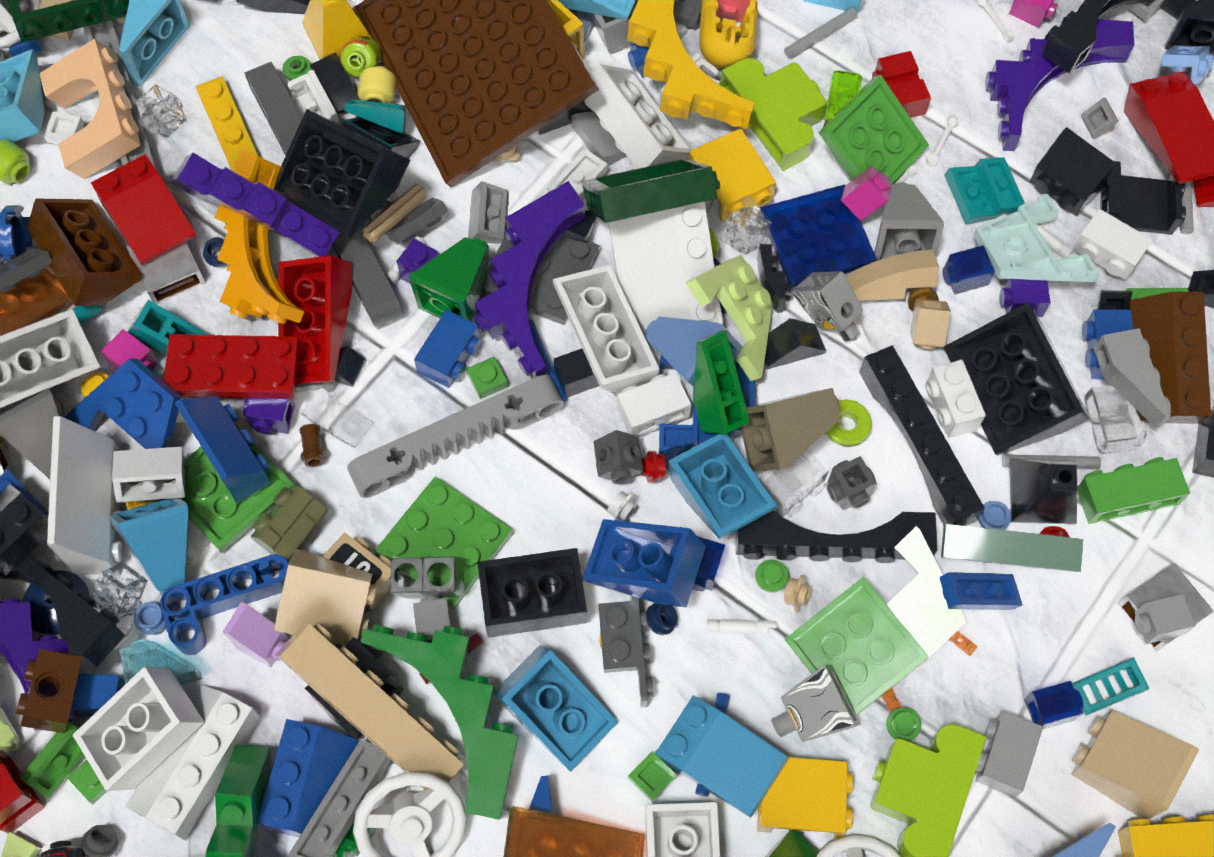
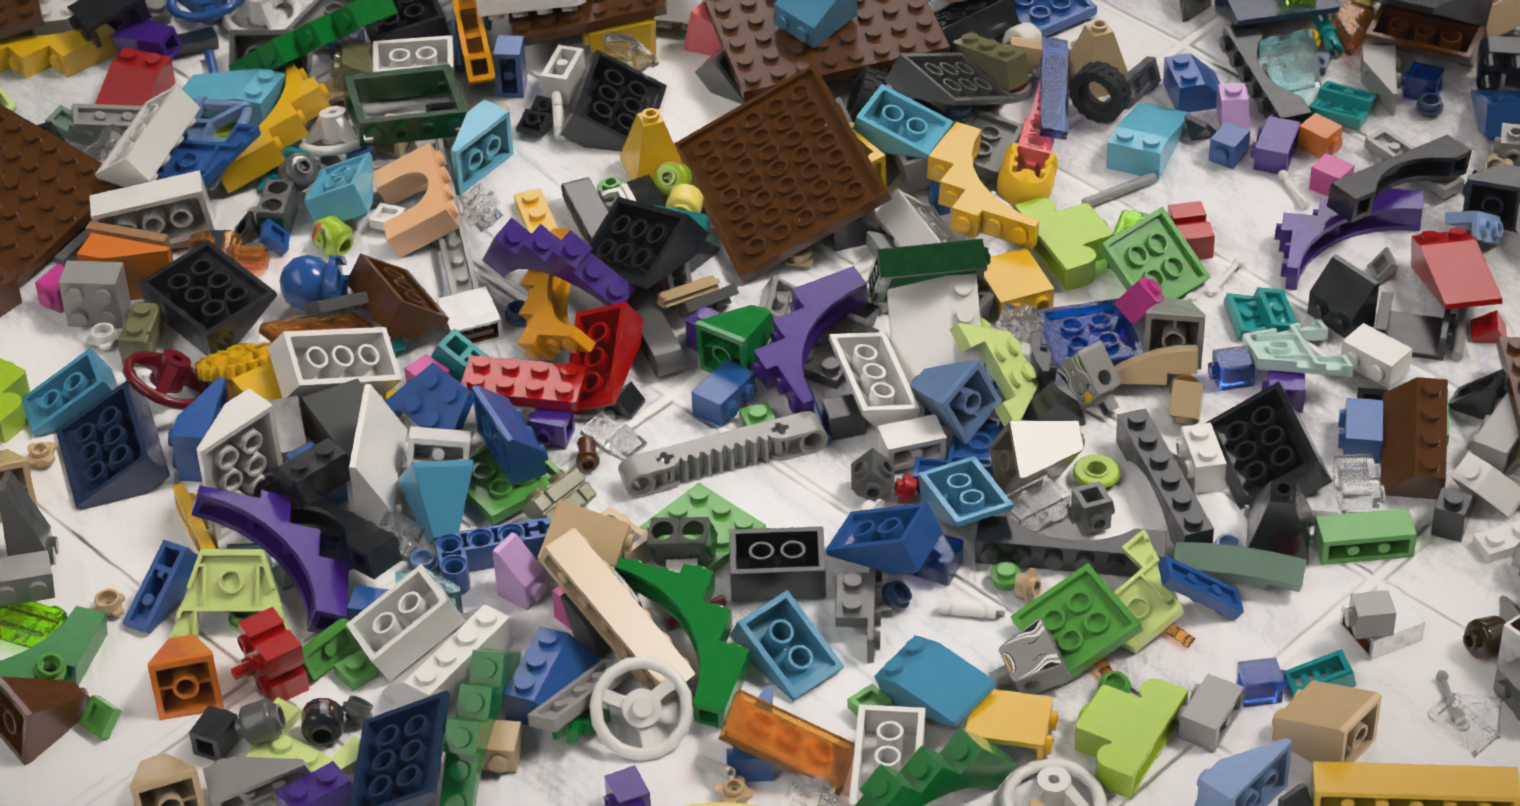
camera: 10 degrees right, 25 degrees down
(52, 712) = (332, 585): reddish brown brick -> none
(143, 209) = (455, 268): red slope -> none
(717, 387) = (970, 415): green slope -> none
(1129, 369) = (1369, 437): light grey slope -> none

